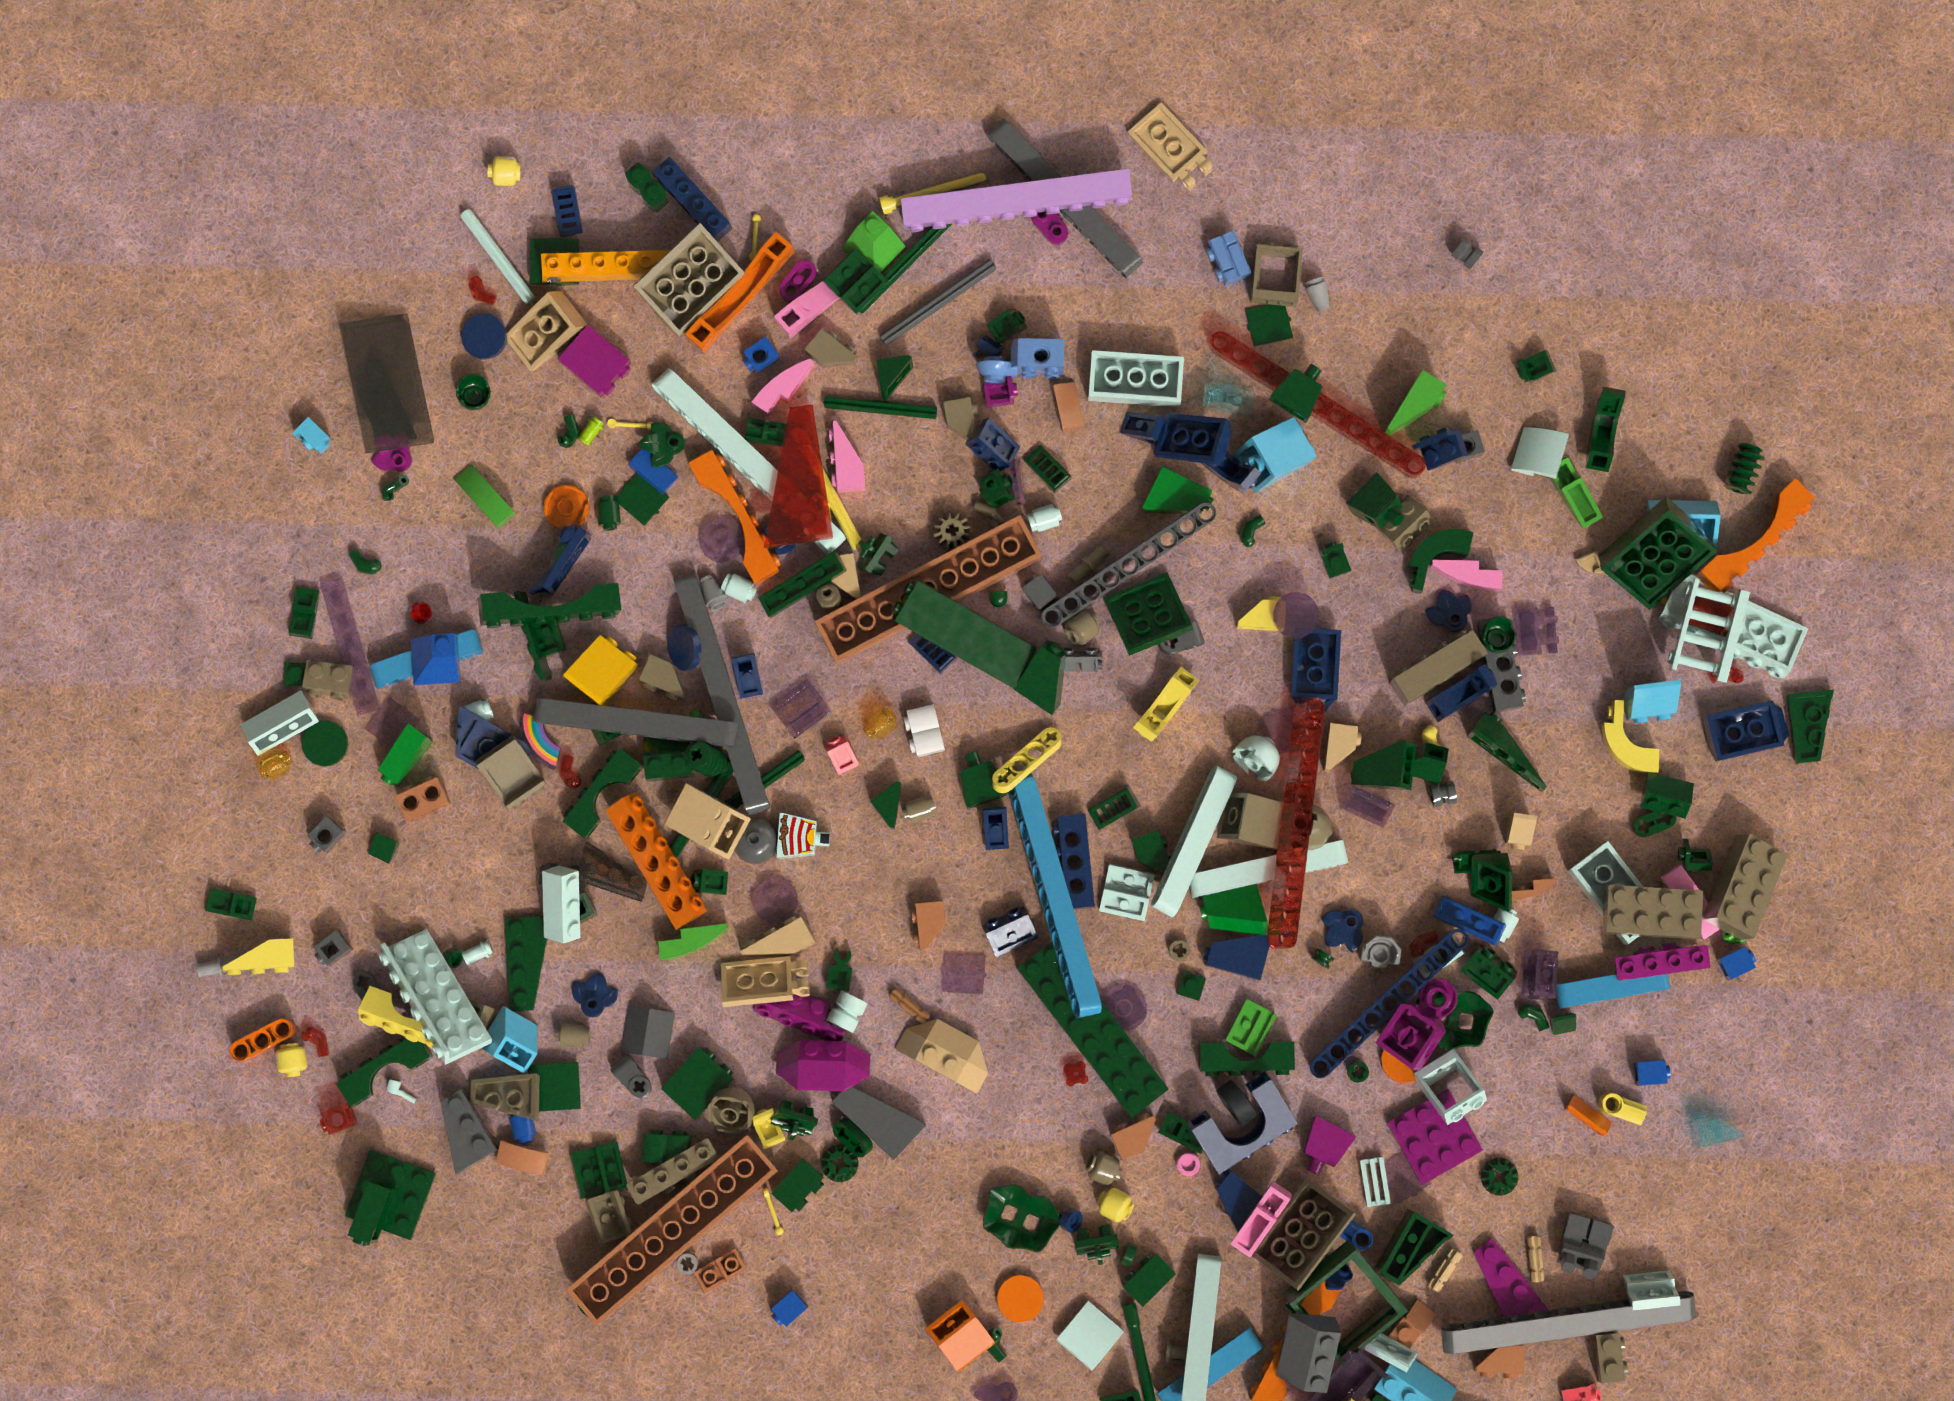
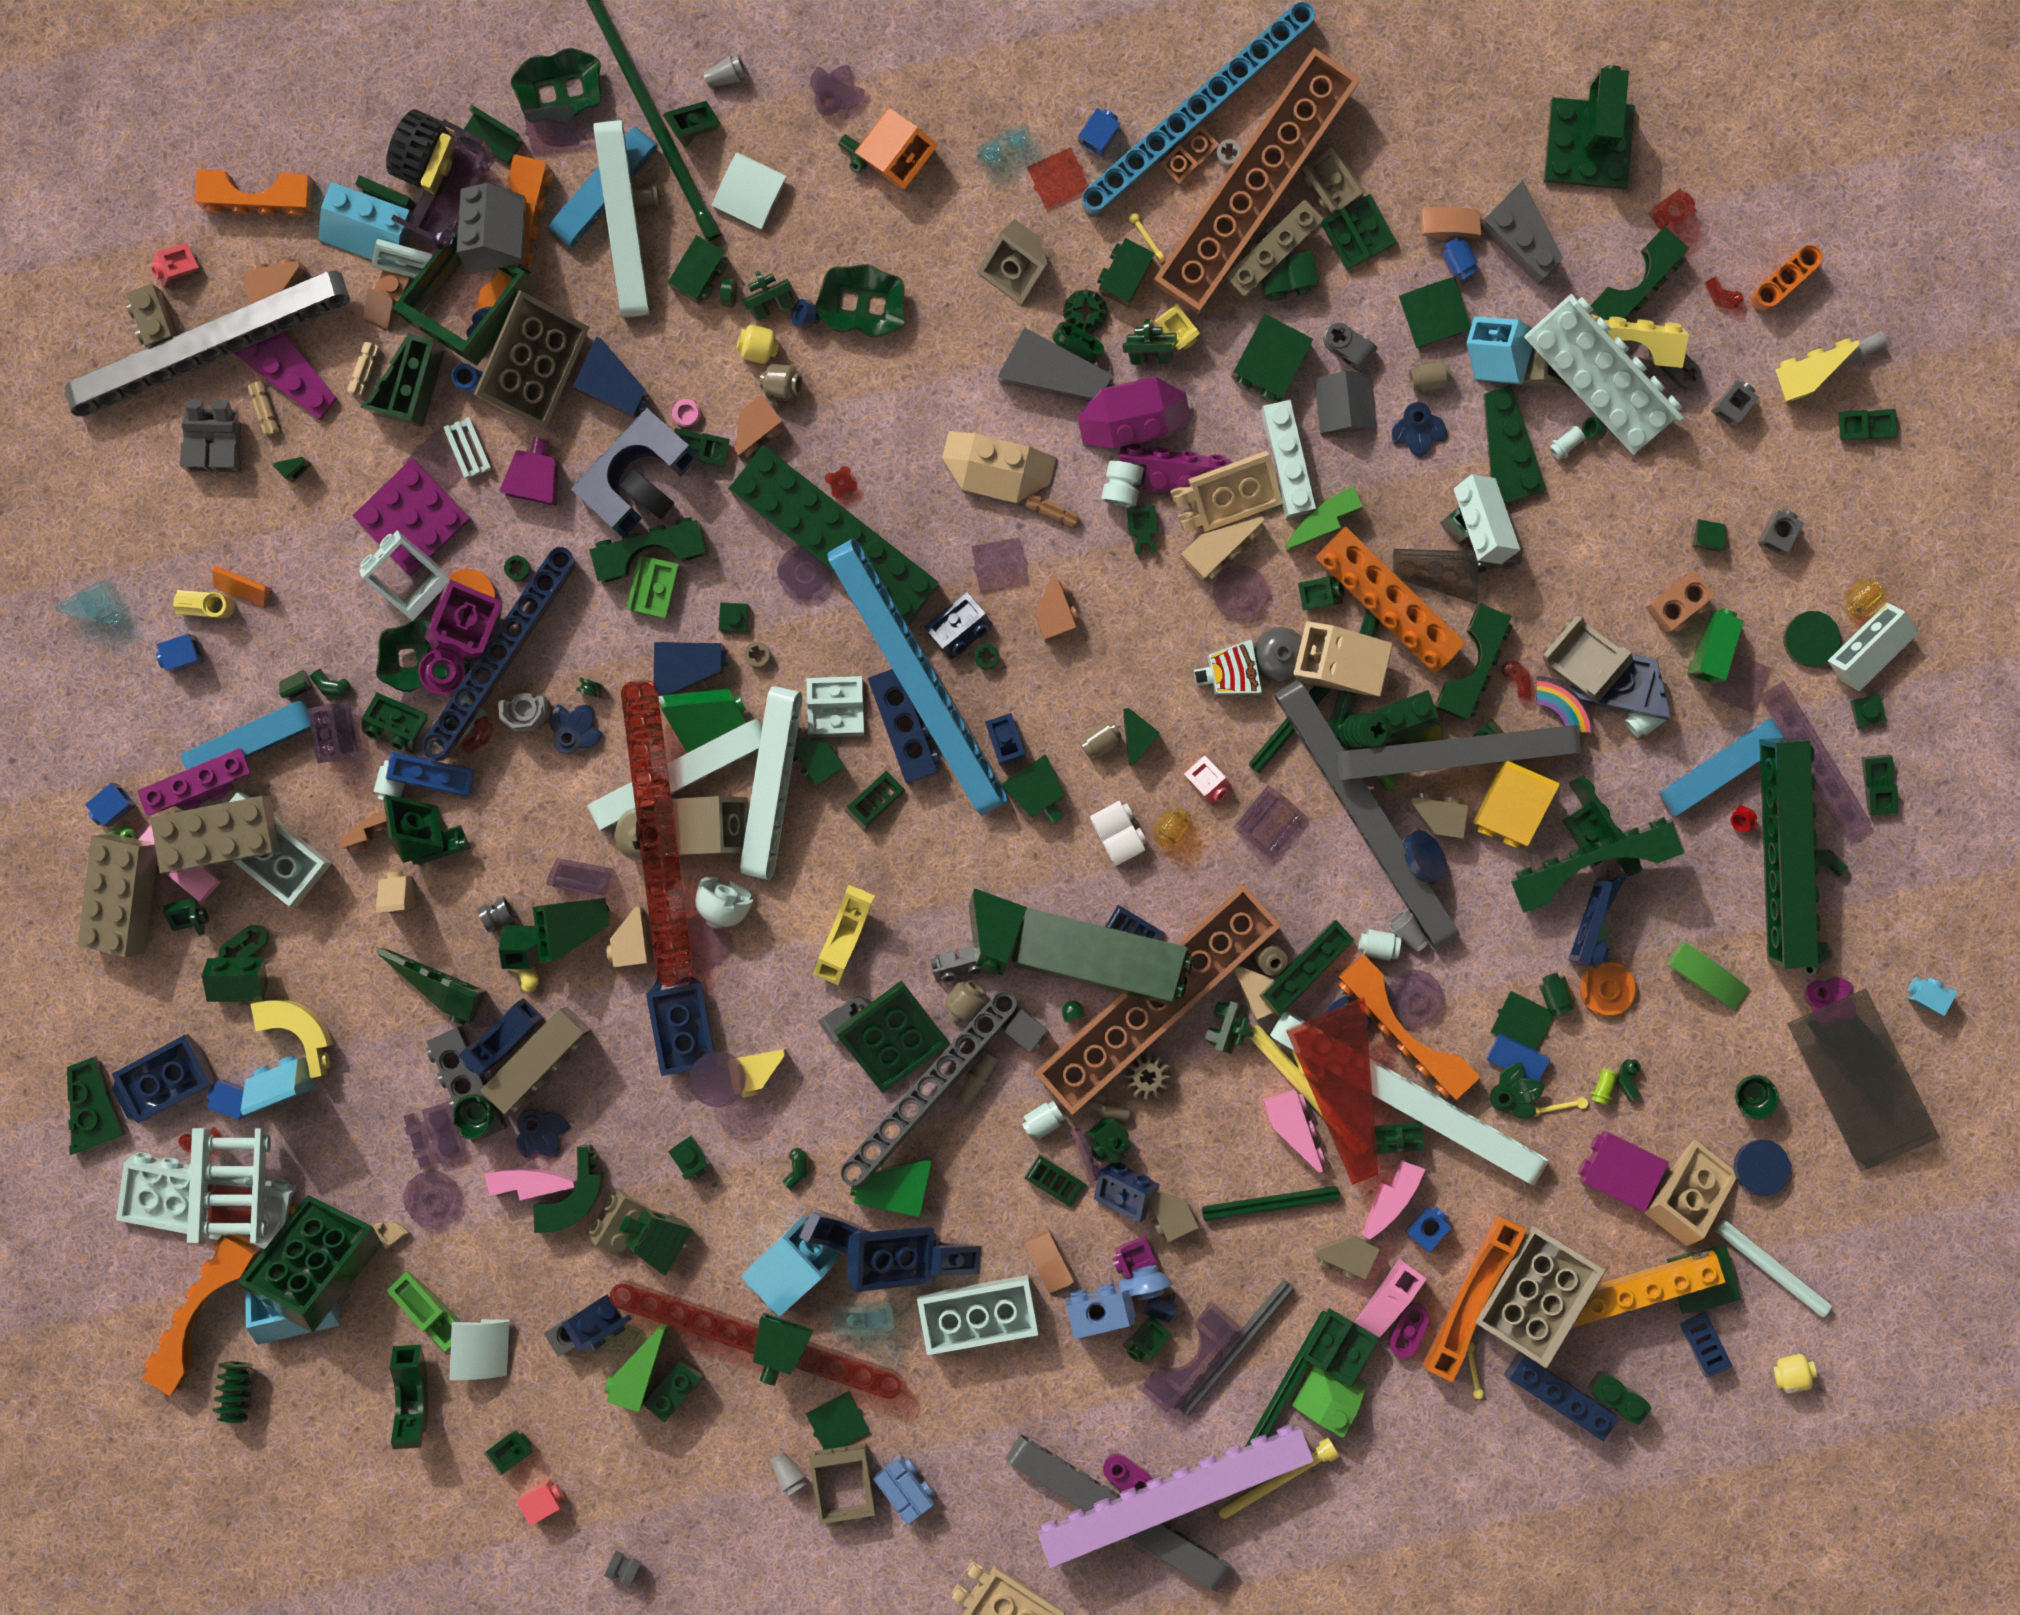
camera: 165 degrees right, 5 degrees up
(291, 1059) = (1747, 264): light yellow head -> none
(328, 680) = (1830, 712): dark tan bracket -> none
(394, 575) = (1789, 852): none -> dark green brick
(394, 1086) = (1619, 263): light aqua hand -> none
(435, 659) = (1712, 766): blue slope -> none
(479, 293) = (1783, 1220): clear red arm -> none
(508, 1094) = (1485, 288): dark tan wing -> none
(691, 1307) = (1204, 97): none -> dark azure beam
(707, 996) = (1289, 459): none -> light aqua arch
(731, 1110) = (1225, 336): dark tan cylinder -> none
(747, 675) = (1342, 843): dark blue slope -> none
(832, 1280) = (1058, 178): none -> clear red piece
(878, 1317) = (993, 148): none -> clear light blue slope
(886, 1217) = (1014, 261): none -> dark tan slope
(892, 373) = (1267, 1248): dark green slope -> none
(987, 903) = (993, 651): none -> dark green bush
(1000, 287) = (1168, 1384): none -> clear purple arch
(1020, 1298) = (839, 212): orange tile -> none
(1028, 761) = (993, 829): light yellow beam -> none
(1261, 1219) = (583, 367): bright pink slope -> none
(1392, 382) = (673, 1389): none -> dark green brick
(1488, 1175) = (339, 489): dark green gear -> none
(1519, 321) = (541, 1502): none -> coral brick
(1523, 1201) = (292, 468): none -> dark green slope
(1554, 587) = (437, 1190): none -> tile
(1651, 1290) = (120, 404): light aqua slope -> none
(1694, 701) = (226, 1099): none -> blue brick

